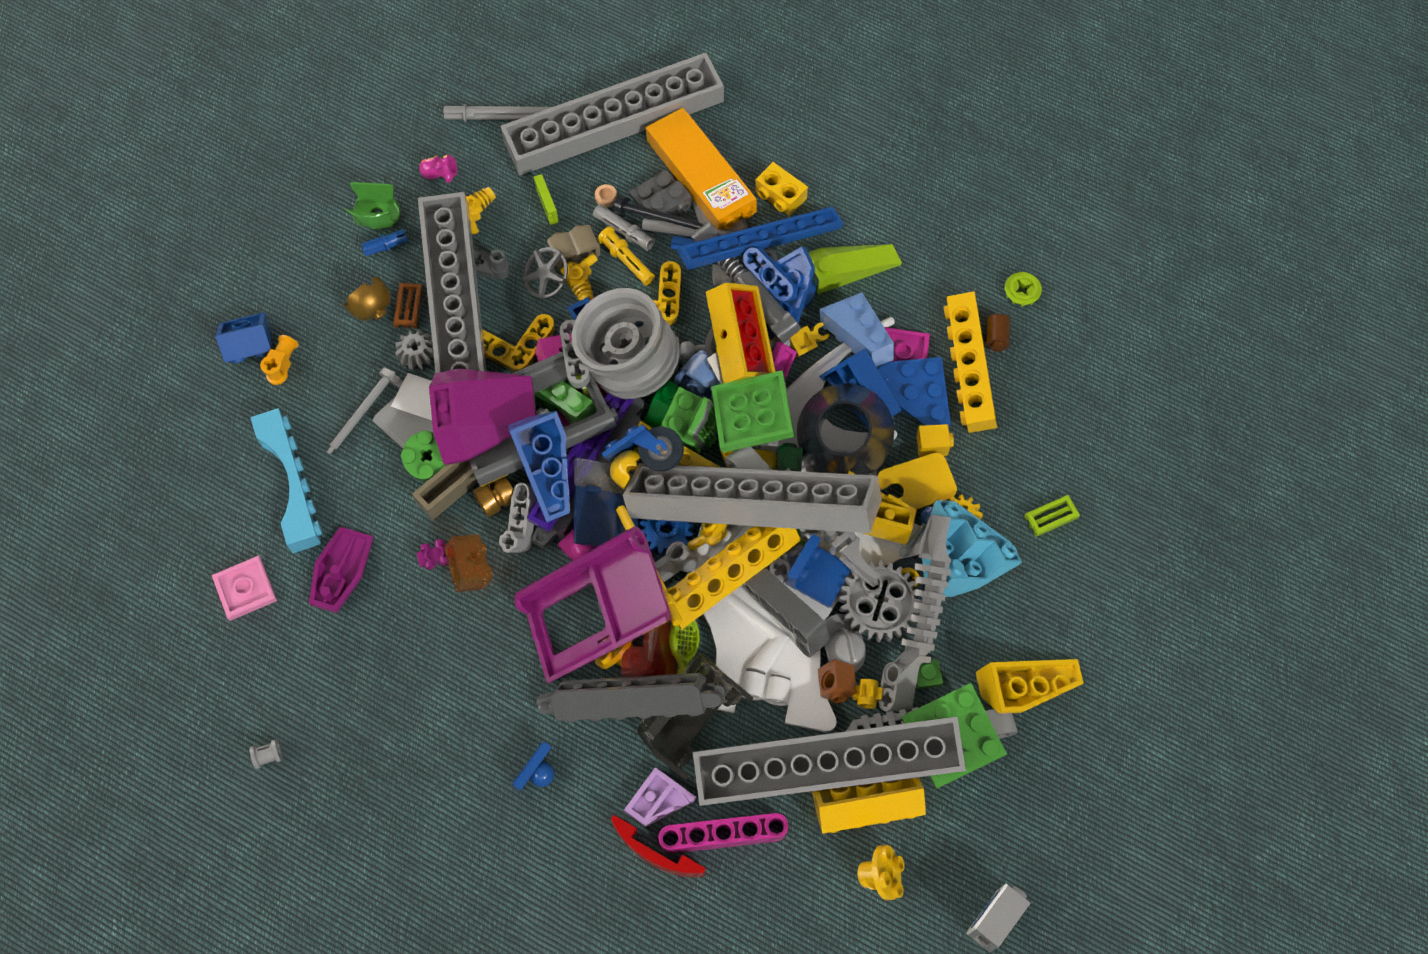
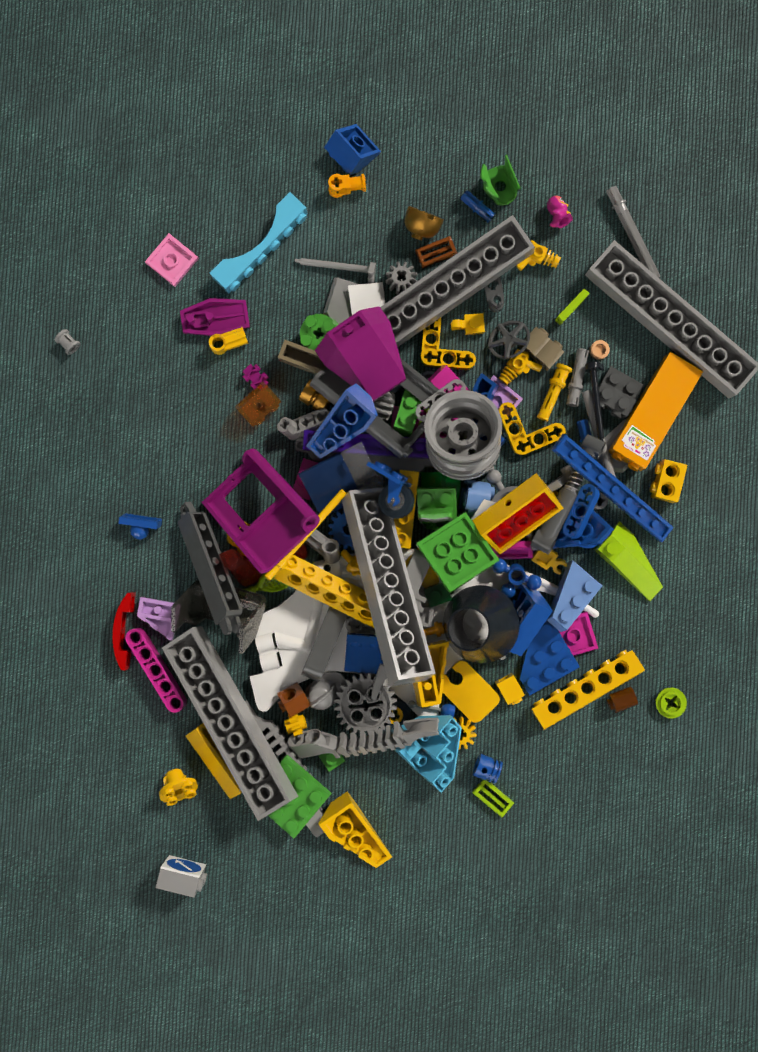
camera: 70 degrees right, 20 degrees up
(376, 564) = (230, 340): none -> yellow piece
(506, 304) = (472, 324): none -> yellow plate
(622, 465) = (372, 479): yellow hair -> none
(823, 361) = (533, 581): none -> blue piece
(1017, 501) = (487, 768): none -> blue piece

